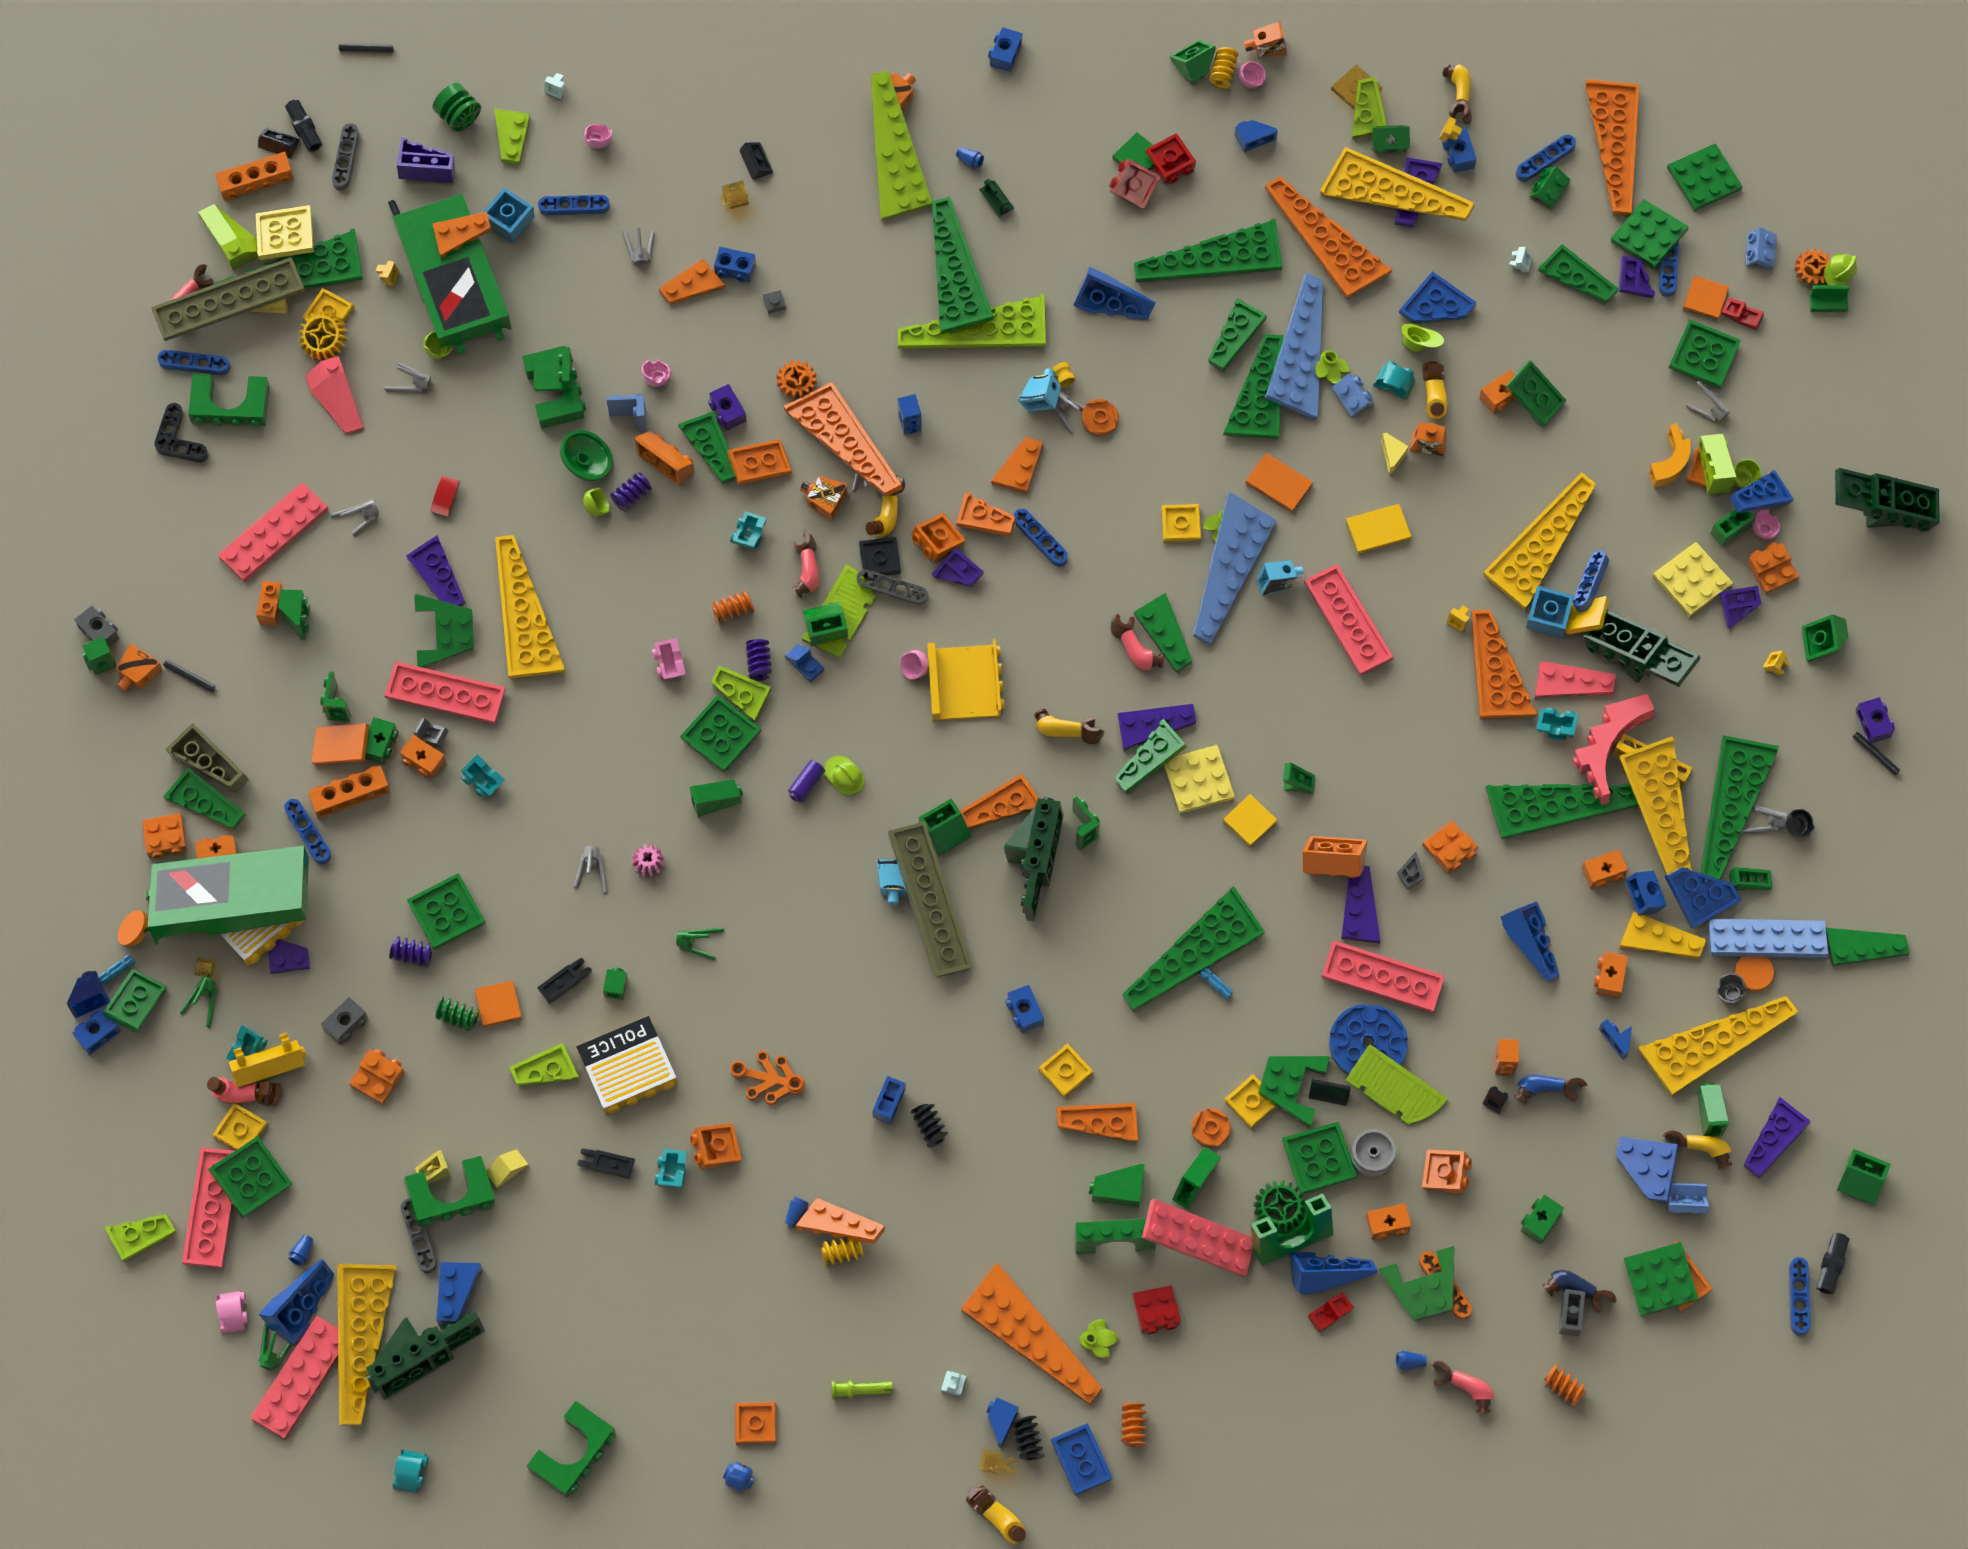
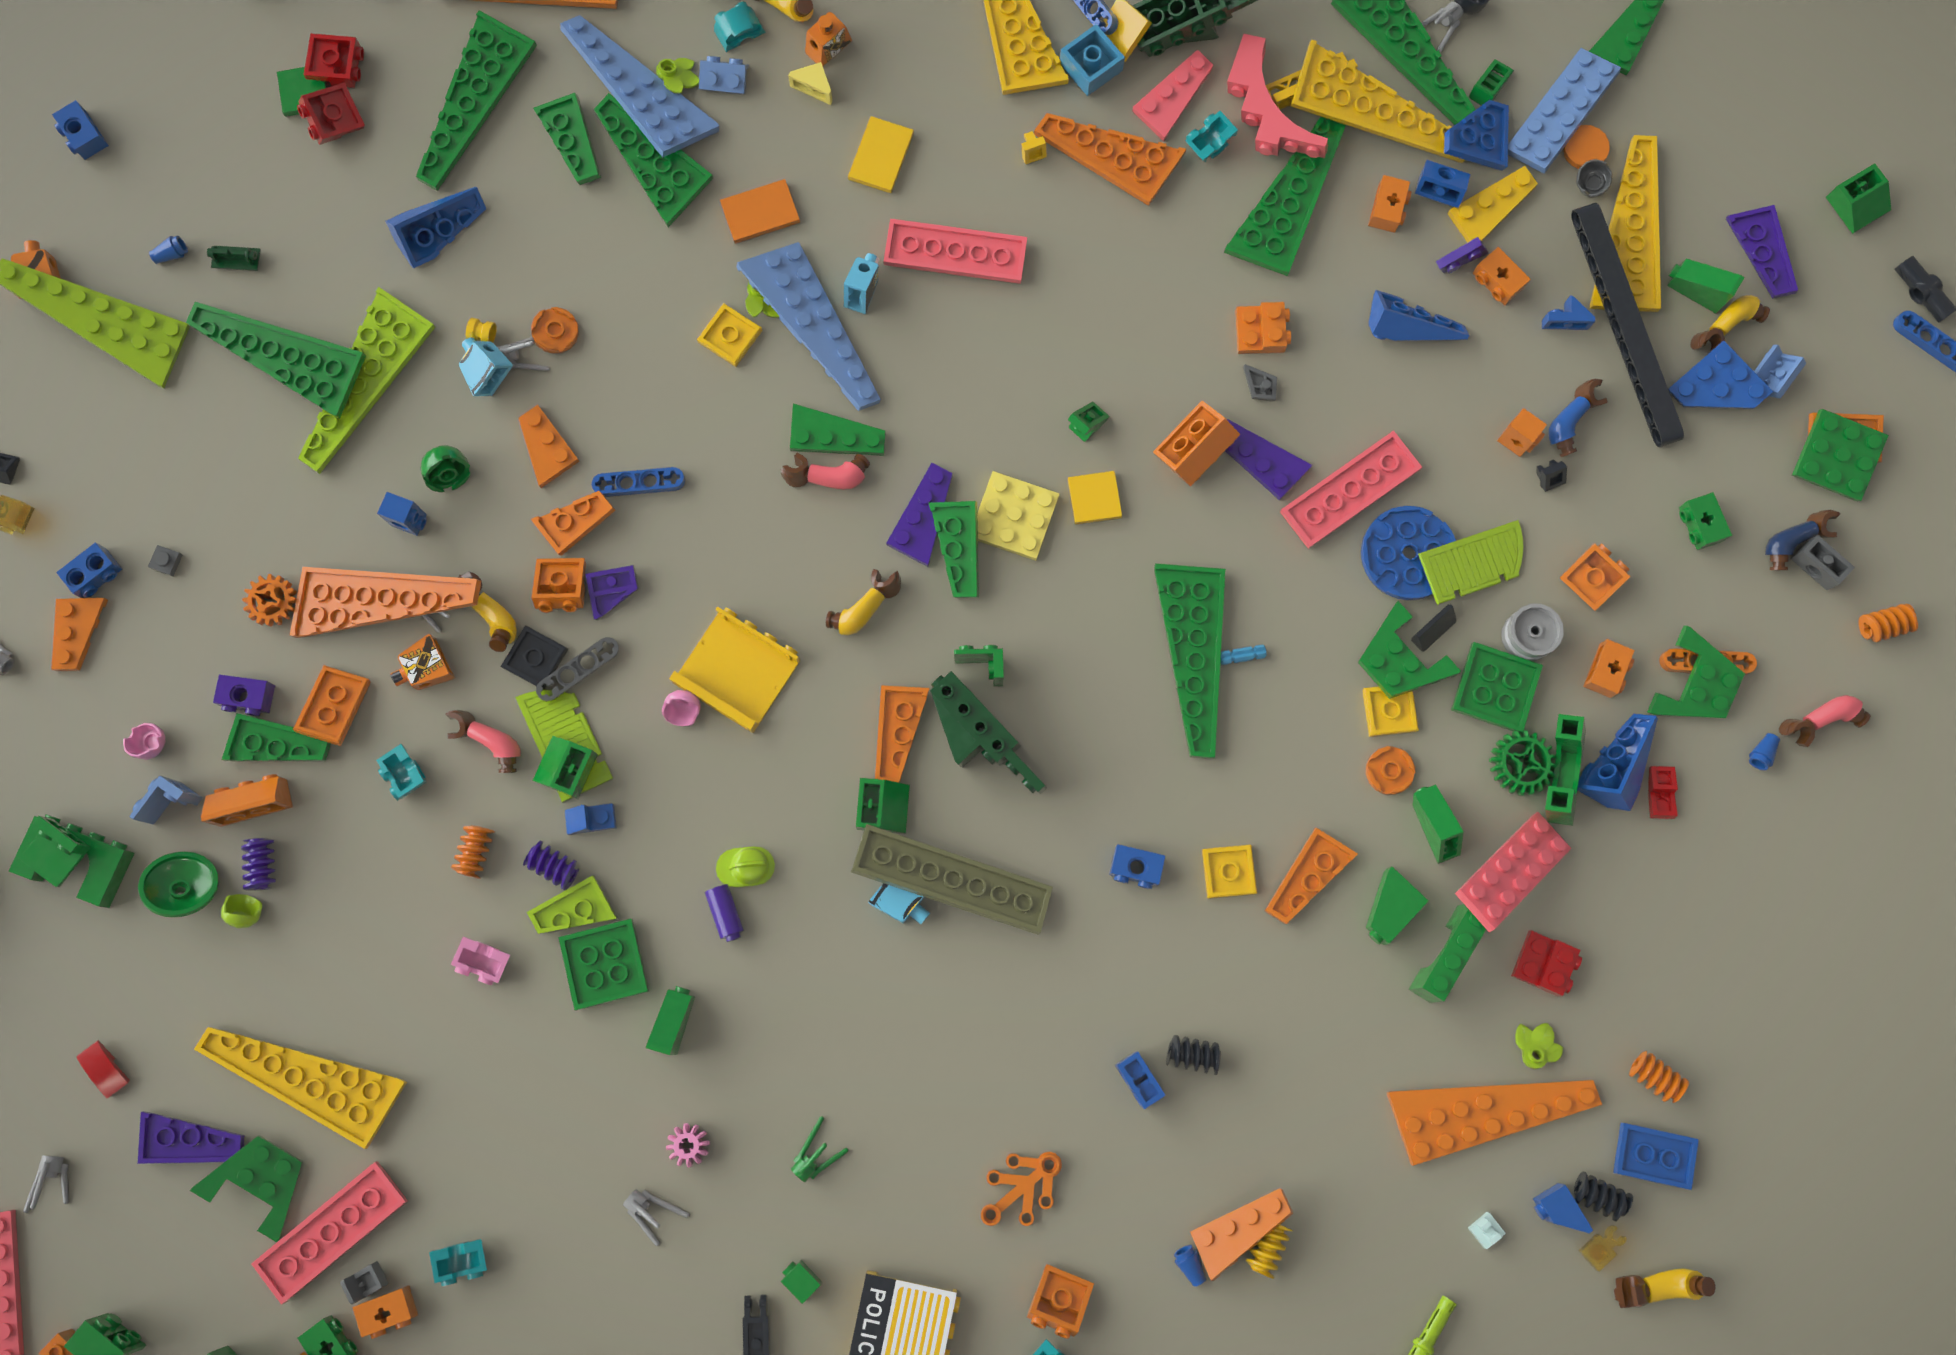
camera: 55 degrees left, 10 degrees up
(958, 417) = (444, 468): none -> green cylinder
(1605, 939) = (1462, 255): none -> dark purple wing
(1639, 1076) = (1627, 325): none -> black beam

